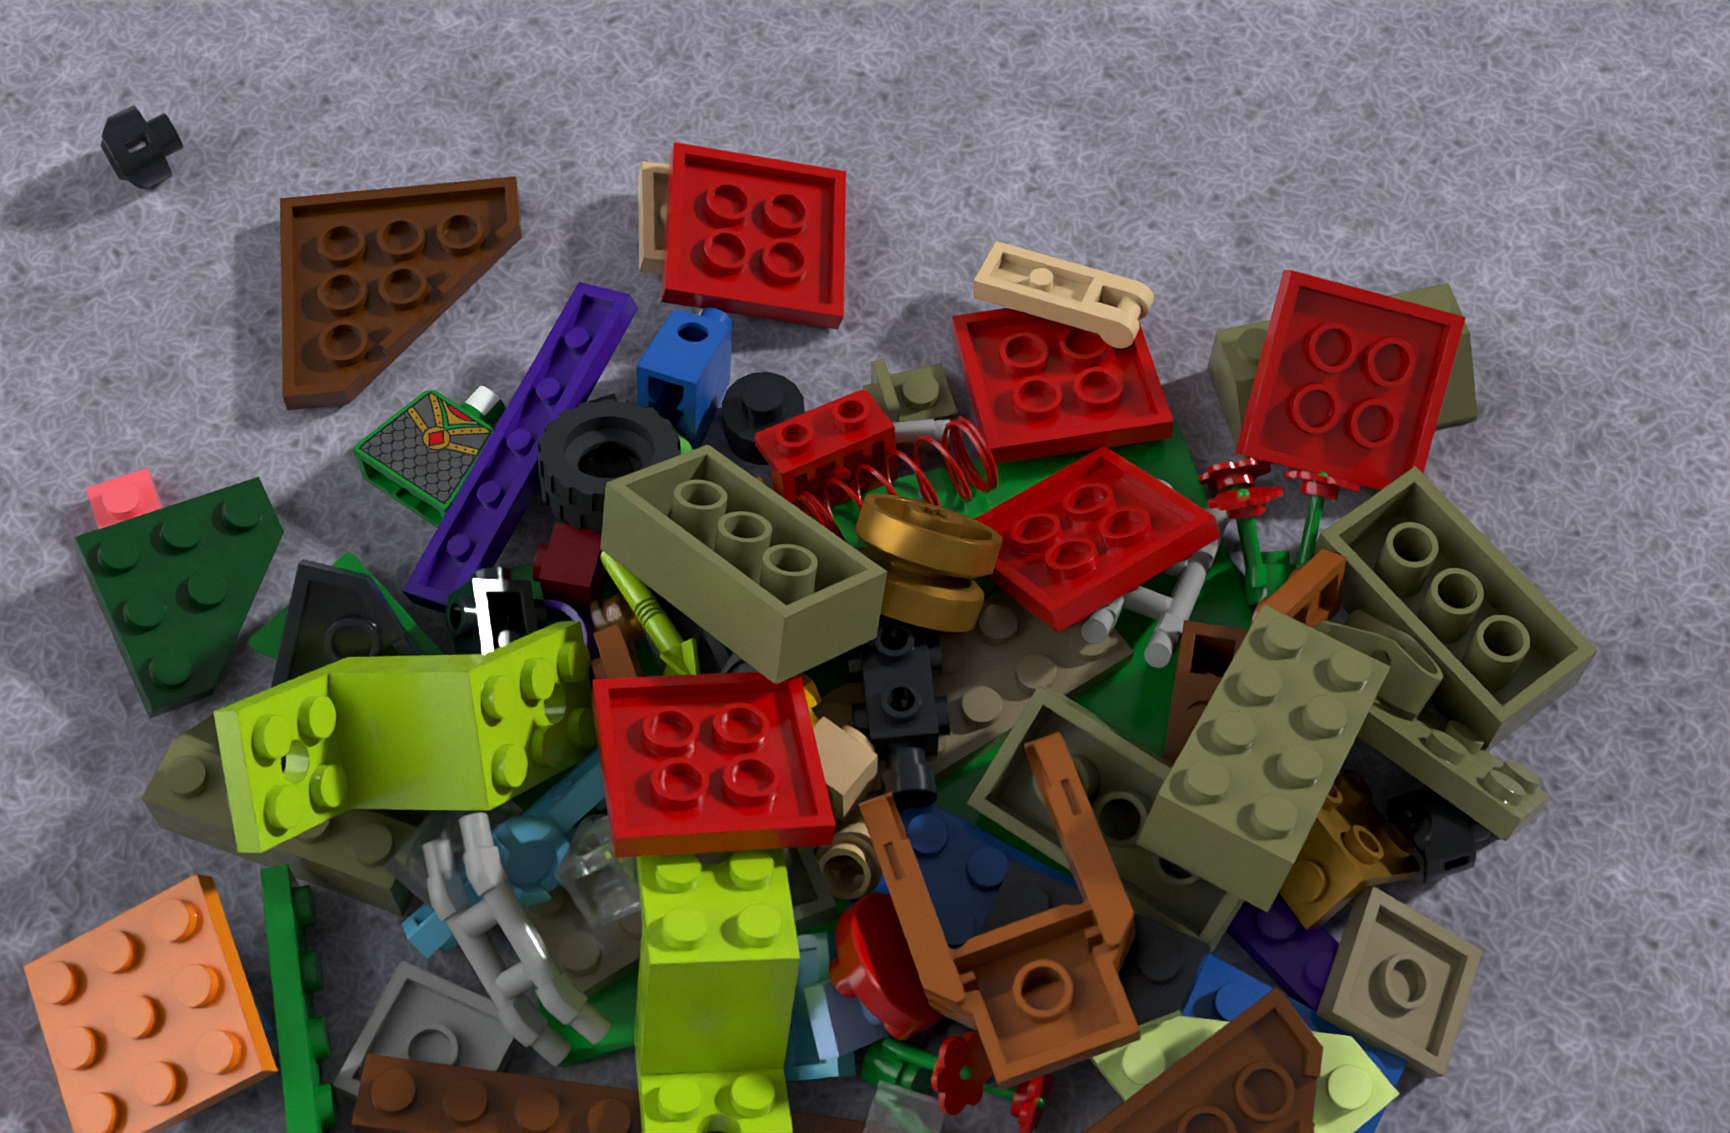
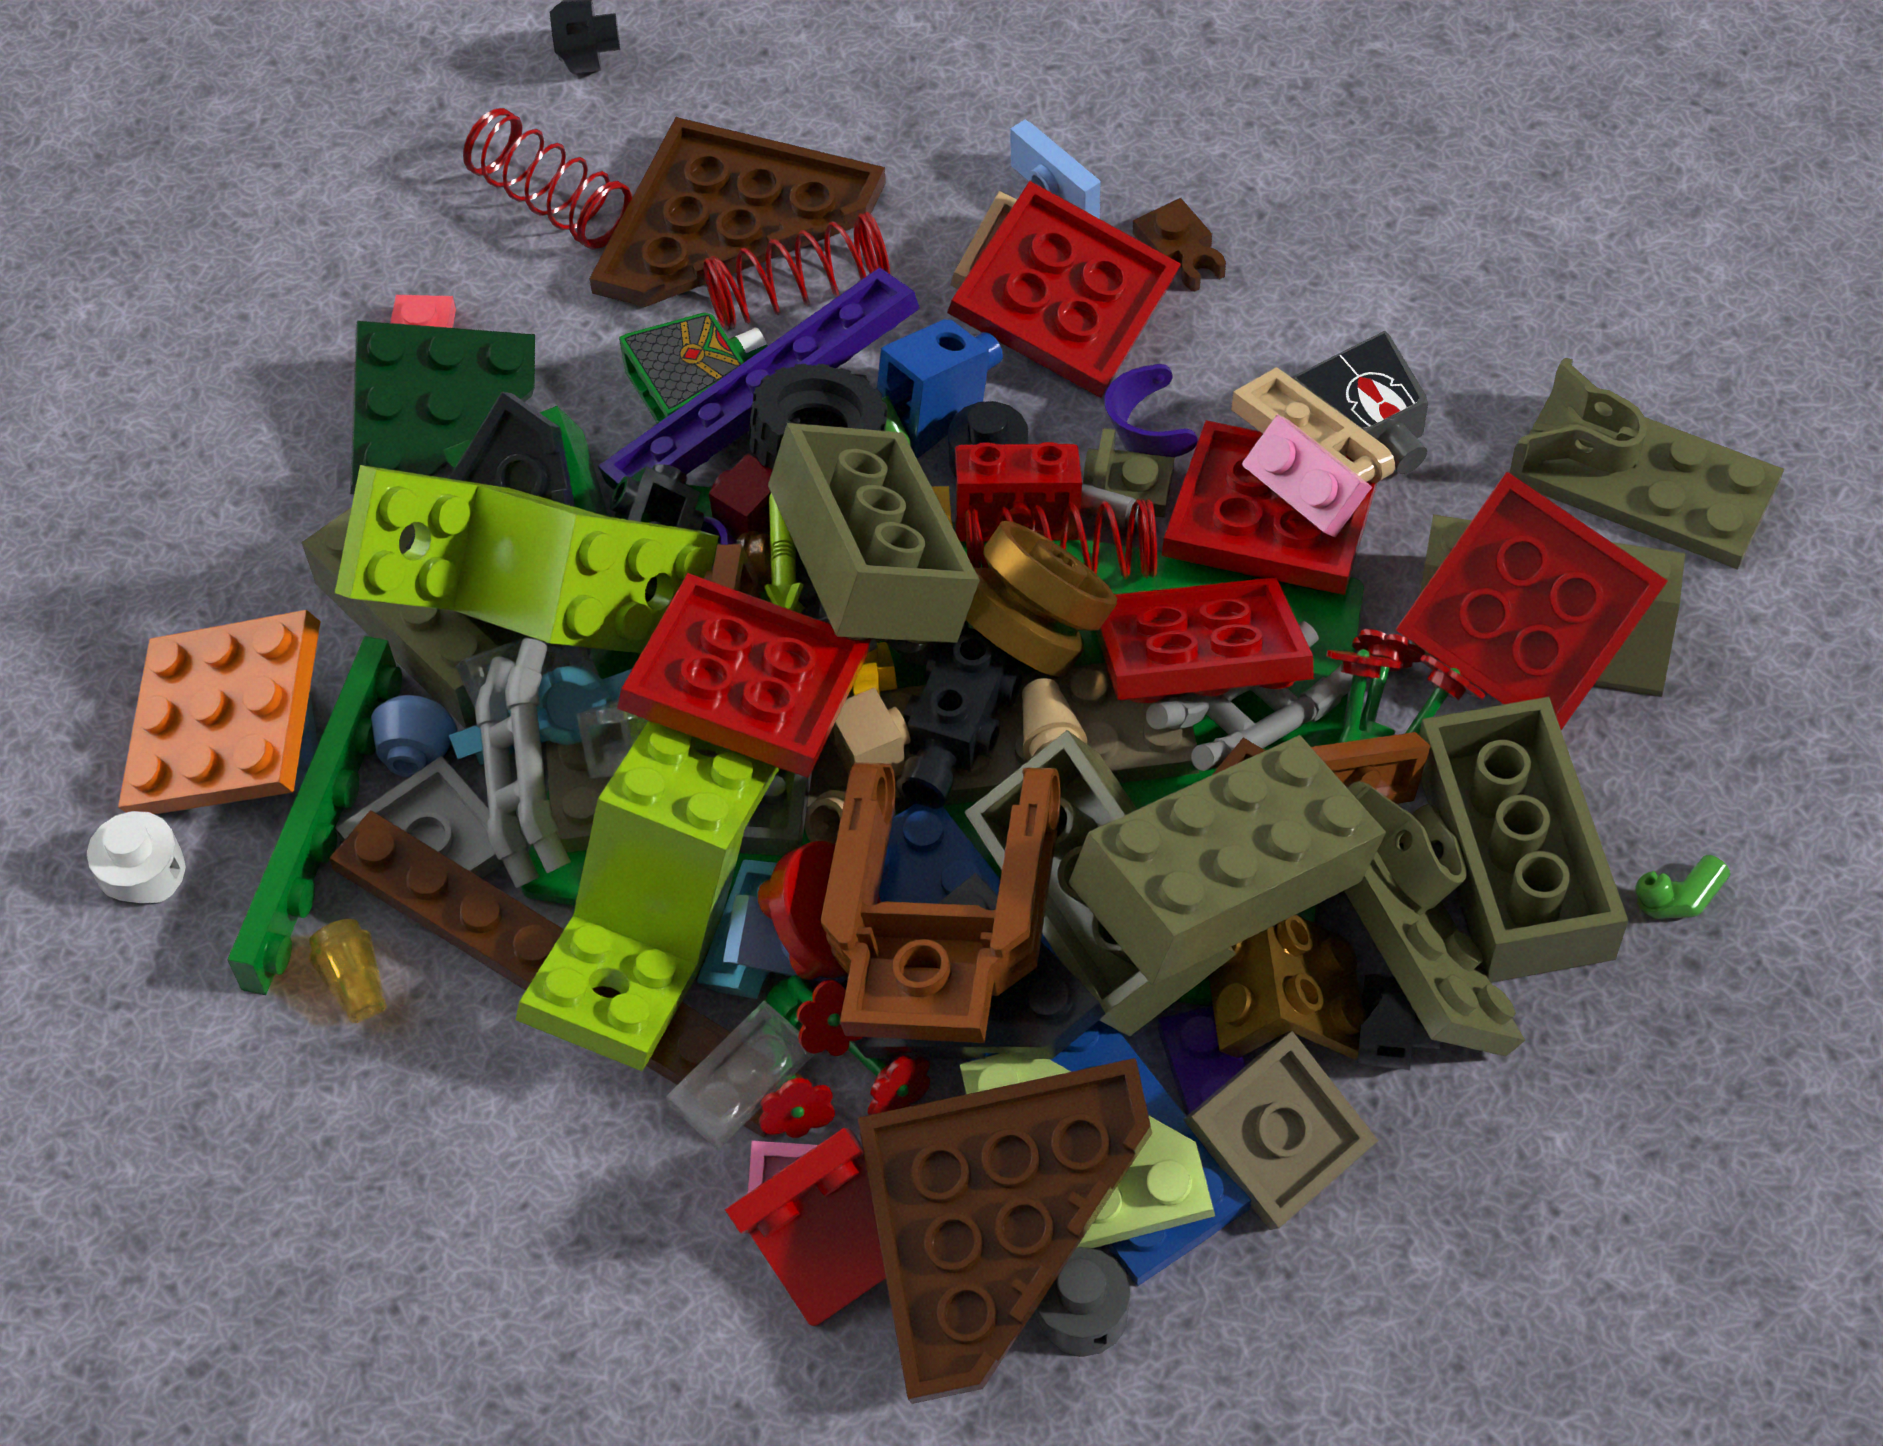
camera: 30 degrees right, 5 degrees down
(247, 325) = (504, 158): none -> red piece
(359, 951) = (411, 733): none -> medium blue cone
(437, 357) = (714, 269): none -> red piece
(677, 120) = (1052, 168): none -> light blue plate
(829, 144) = (1184, 238): none -> reddish brown plate
(896, 360) = (1123, 397): none -> dark purple helmet
(993, 680) = (1046, 716): none -> tan cone
(1088, 338) = (1306, 475): none -> bright pink plate
(1092, 230) = (1377, 394): none -> torso
(1349, 219) = (1642, 473): none -> olive plate
(1602, 600) = (1681, 899): none -> bright green arm

